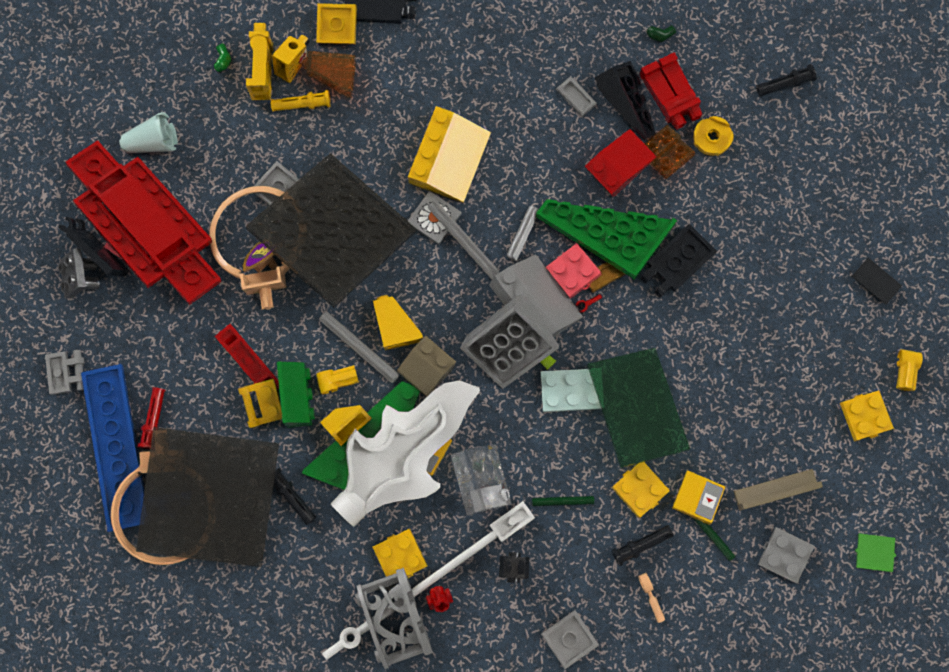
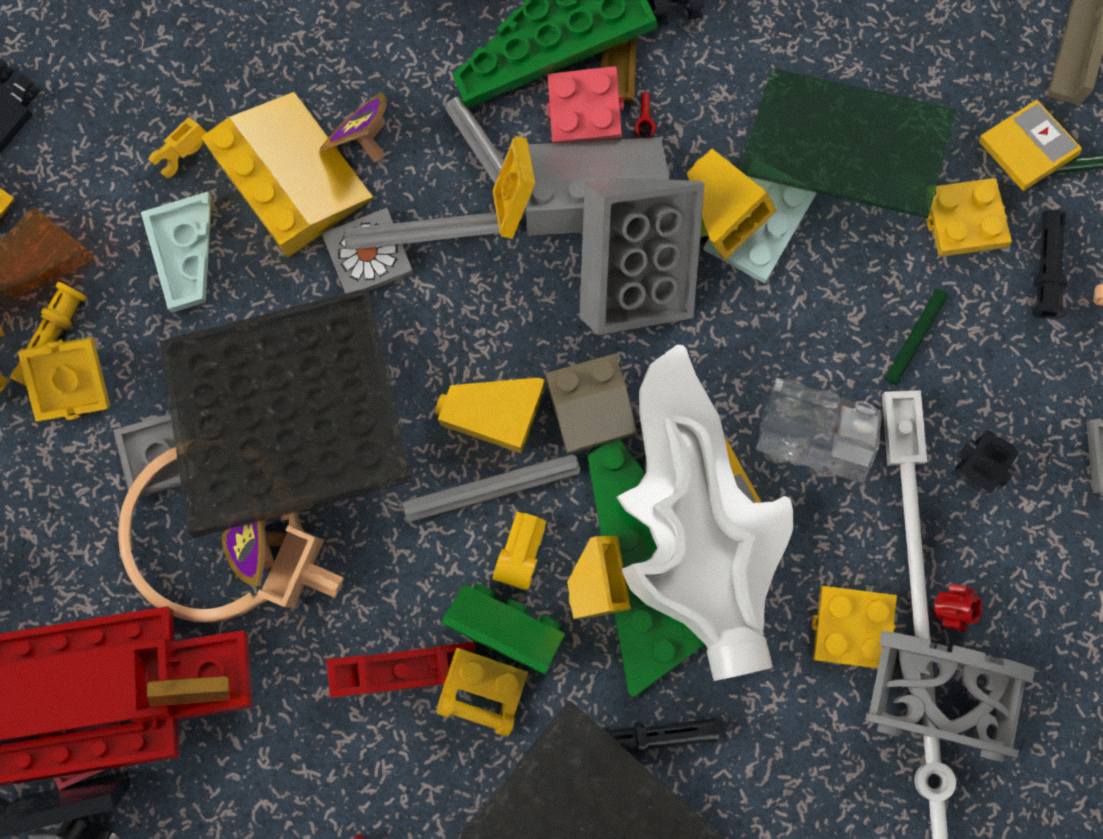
camera: 55 degrees left, 0 degrees up
(177, 272) = (188, 691): none -> pearl gold tile
(285, 124) = (64, 379): none -> yellow plate
(379, 133) = (181, 248): none -> light aqua wing
(428, 98) = (181, 142): none -> yellow plate
(492, 174) = (363, 126): none -> shield
(504, 263) = (513, 187): none -> yellow tile
(565, 367) = (731, 203): none -> yellow slope

